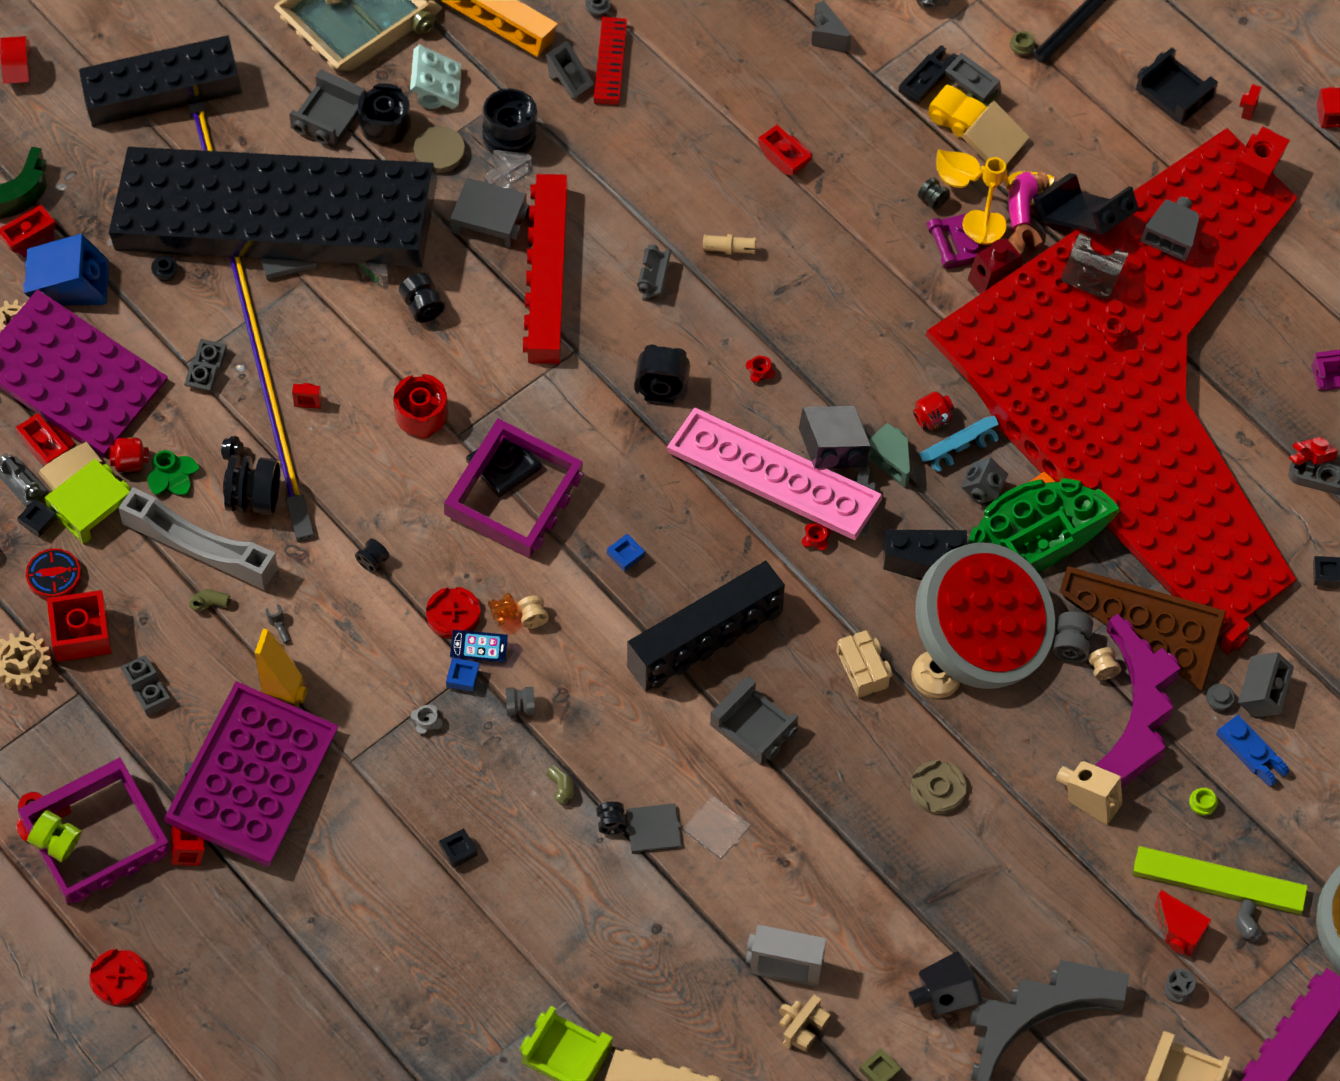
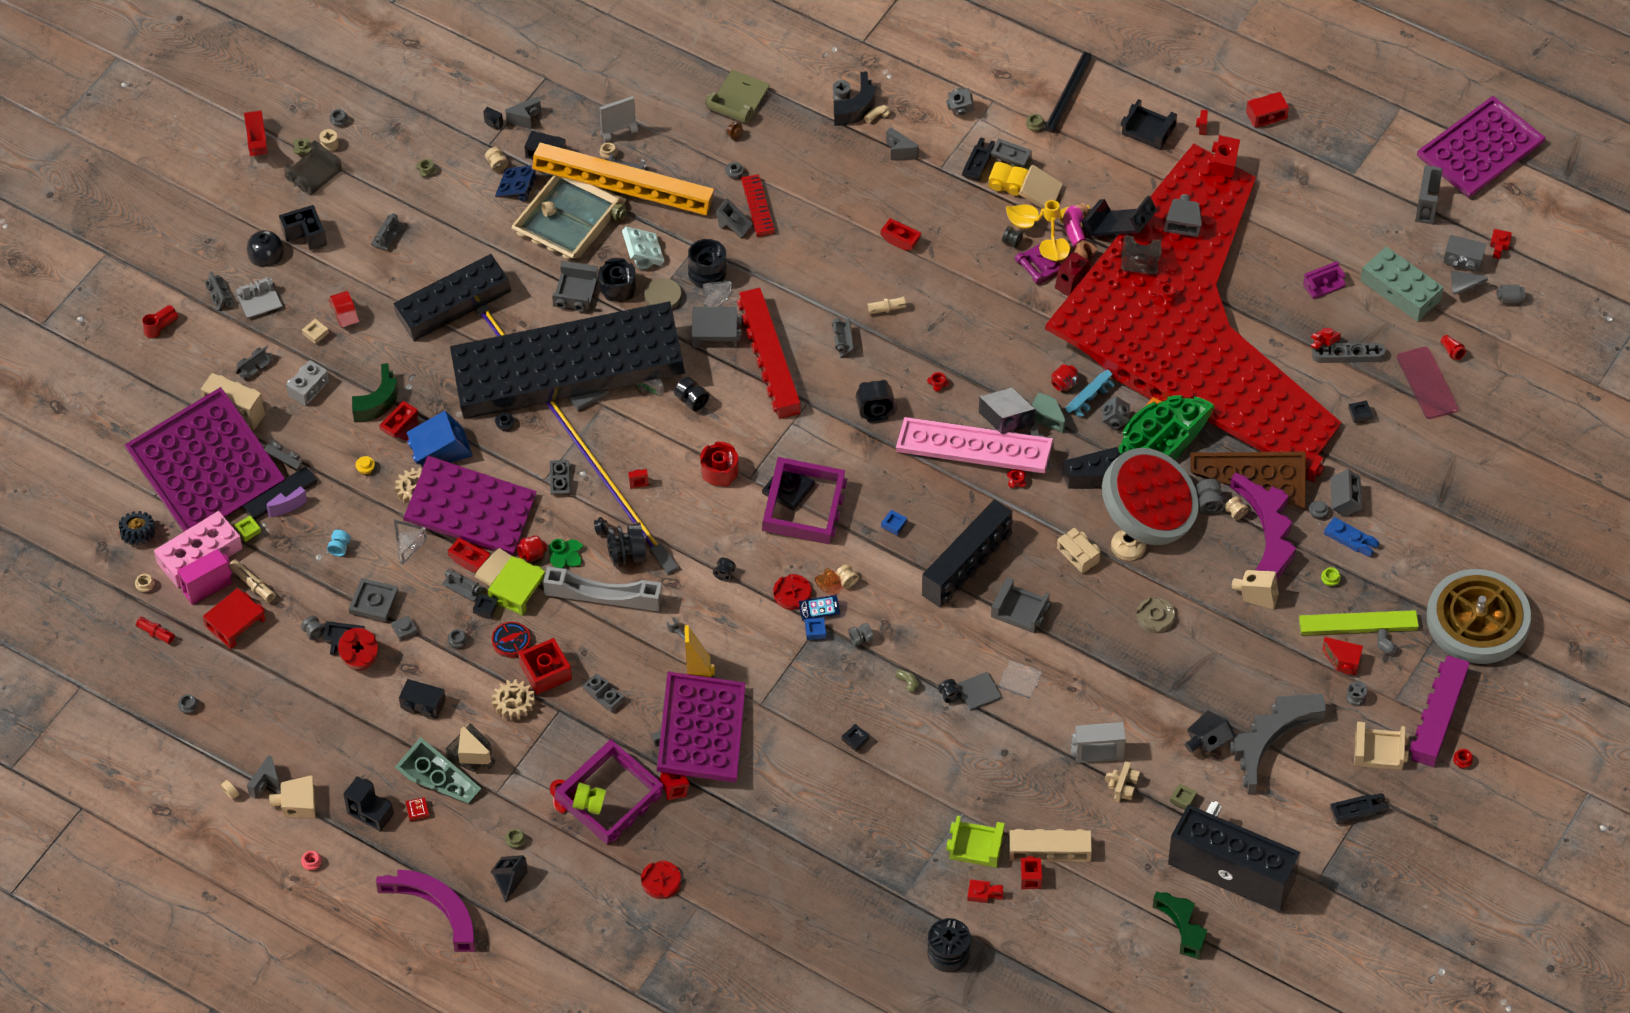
camera: 15 degrees left, 5 degrees down
(207, 598) = (623, 626): olive arm -> none
(423, 712) = (801, 658): light grey plate -> none

